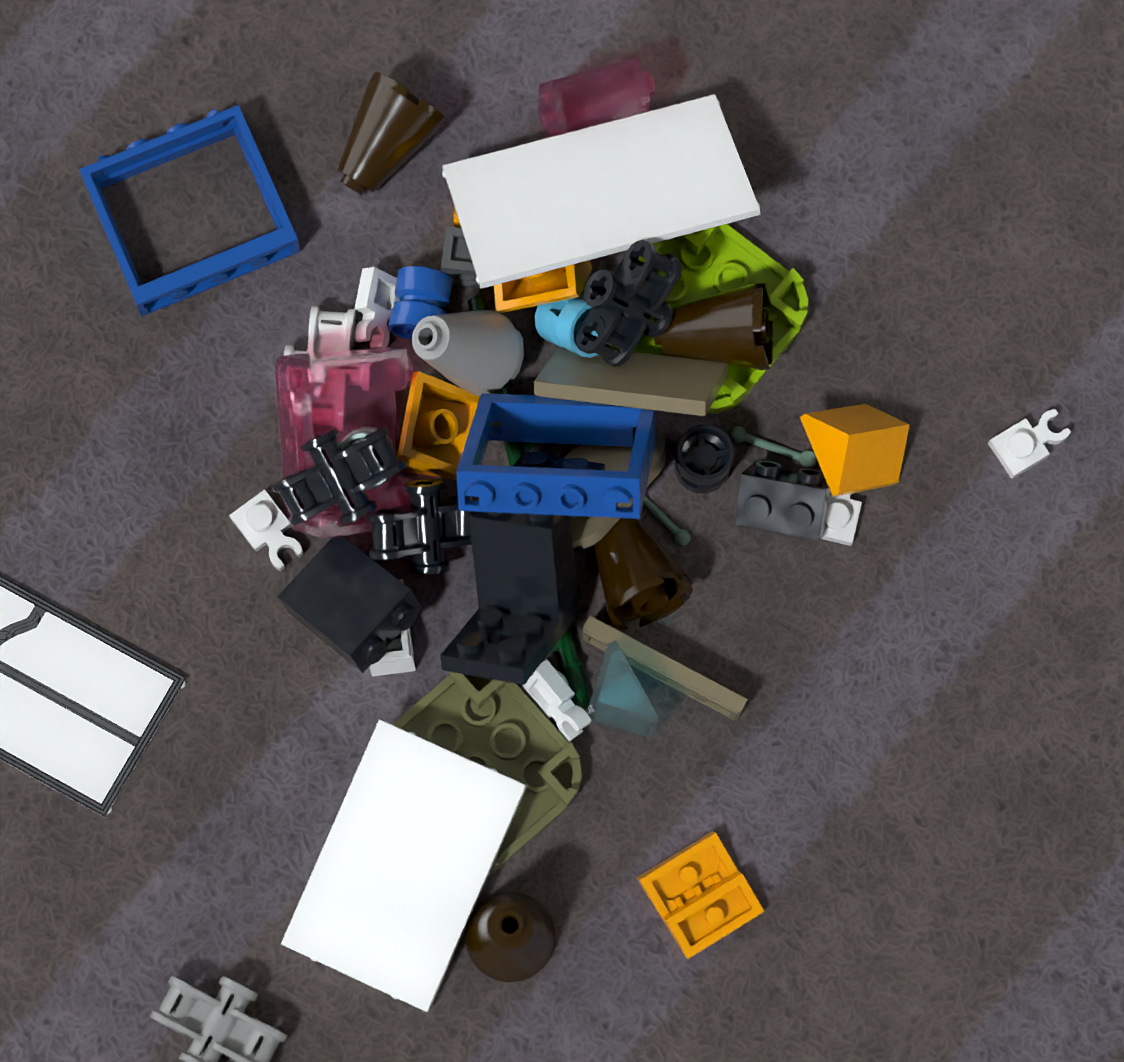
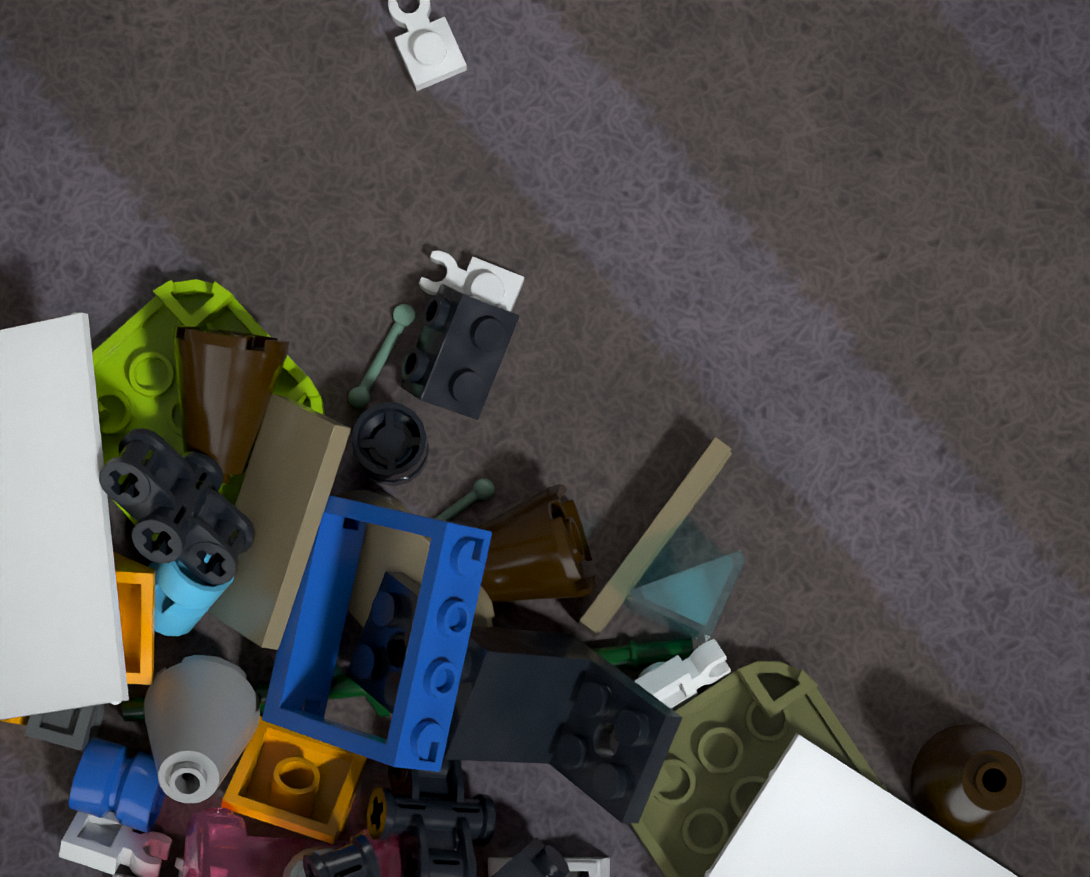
camera: 80 degrees left, 5 degrees up
(710, 912) = (965, 524): light orange slope -> none
(857, 447) = (402, 249): light orange slope -> none

